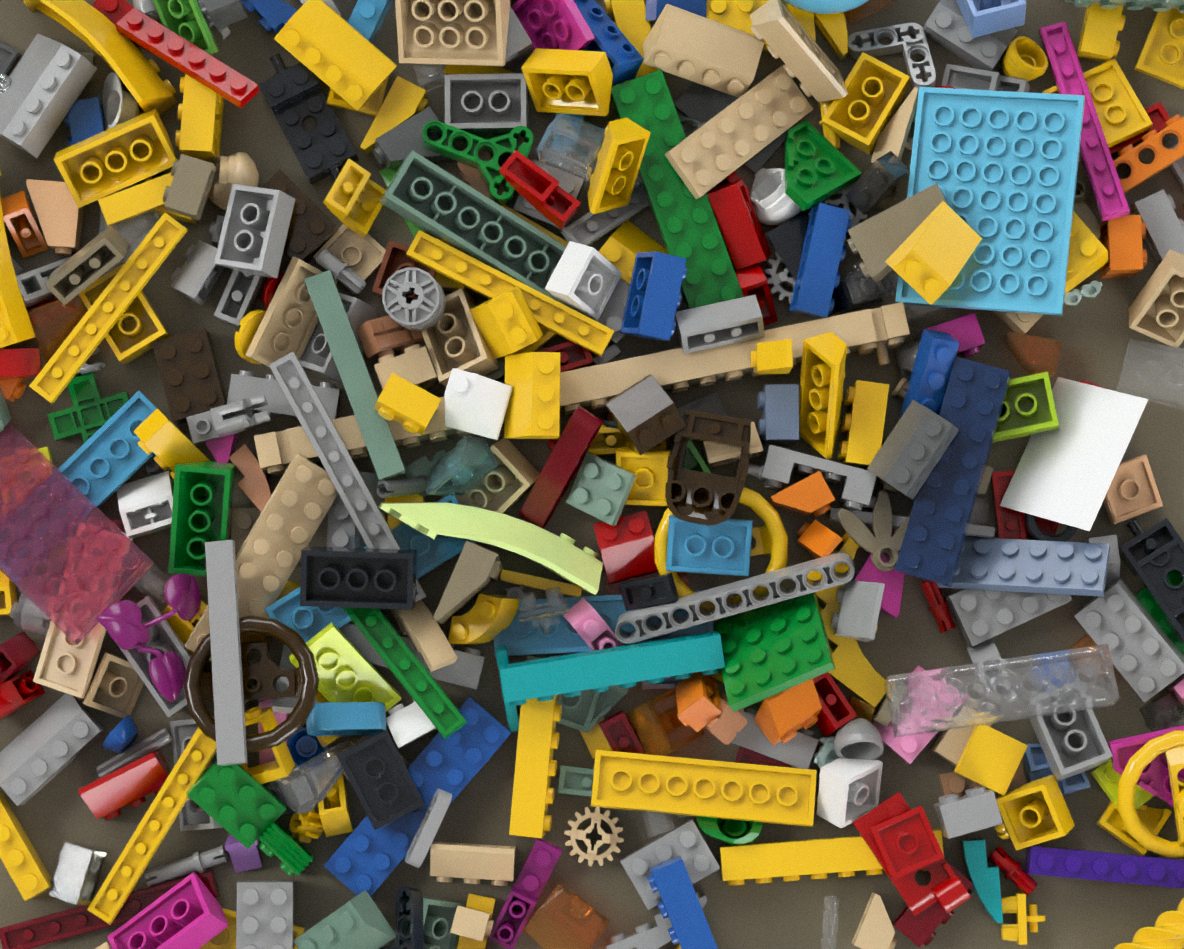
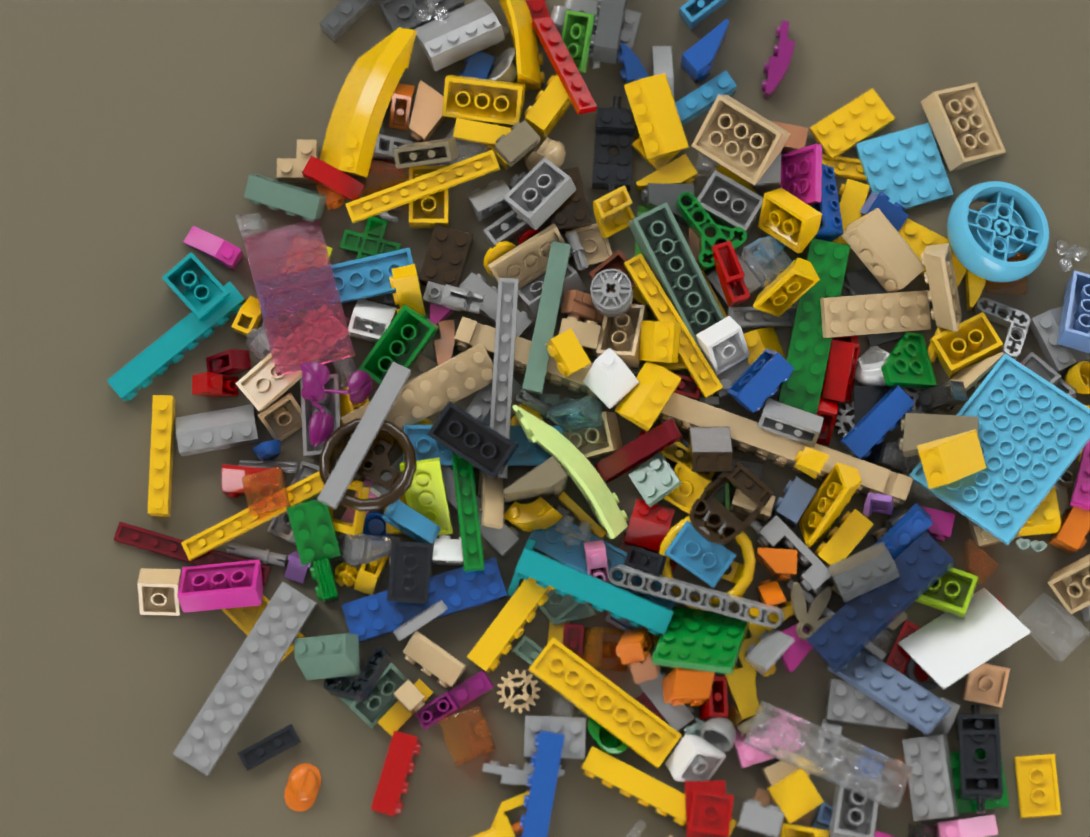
camera: 30 degrees right, 5 degrees down
(77, 874) = (188, 517): clear smoke brick -> none
(150, 790) = (265, 491): none -> clear orange plate
(879, 356) = (878, 503): none -> medium lavender tile
(938, 606) = (821, 682): red axle -> none

